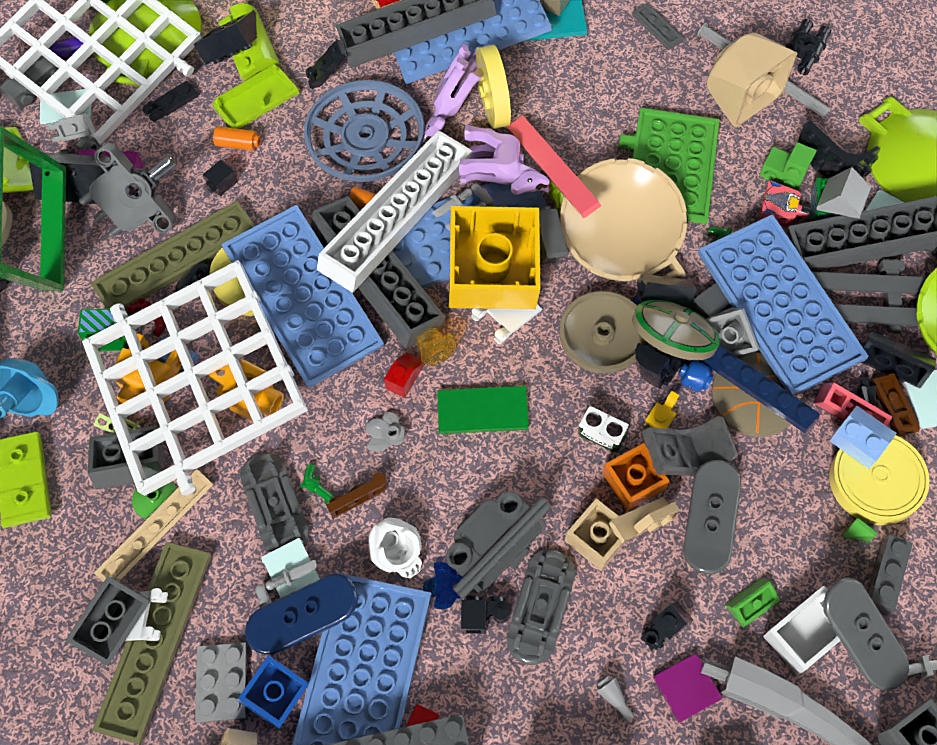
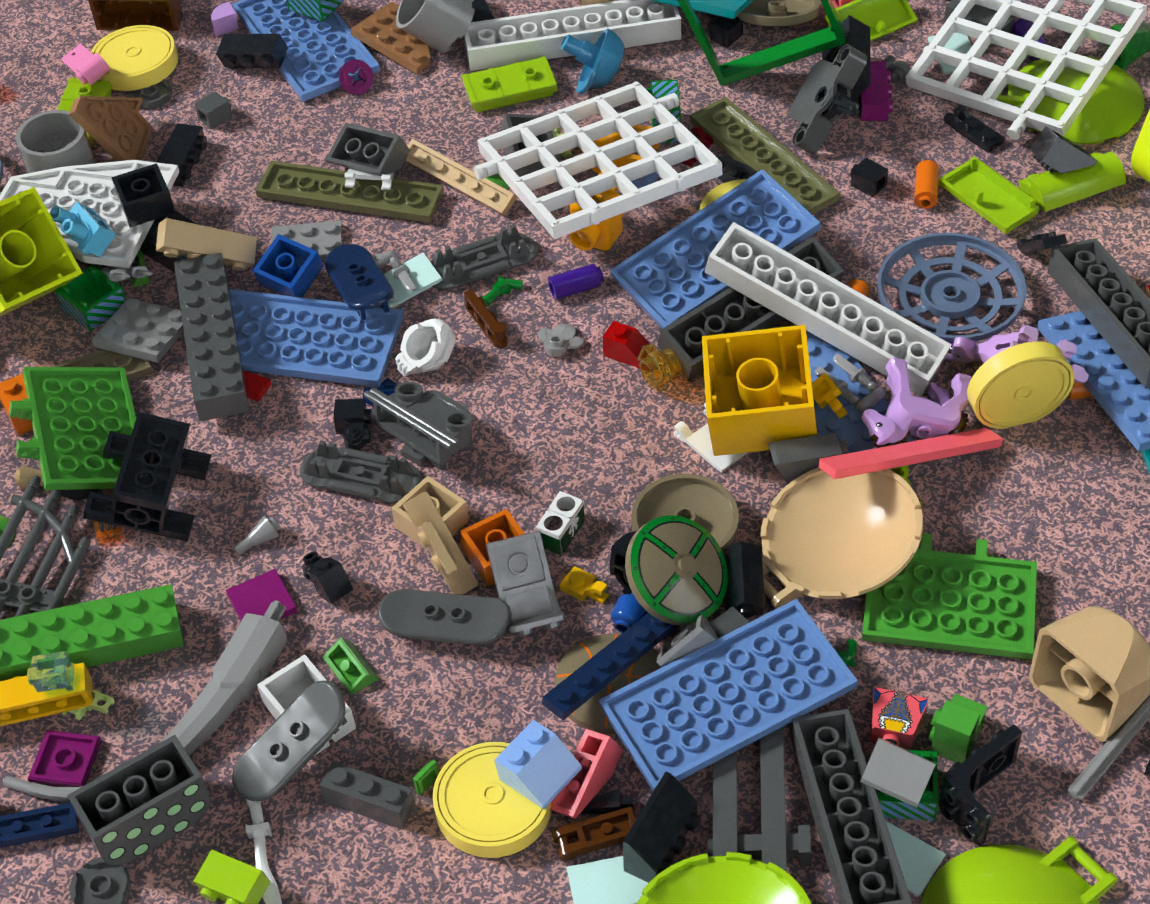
camera: 90 degrees right, 15 degrees down
(72, 127) = (912, 53): light grey hinge -> none
(317, 418) = (575, 281): none -> dark purple brick
(482, 410) = (587, 420): green tile -> none

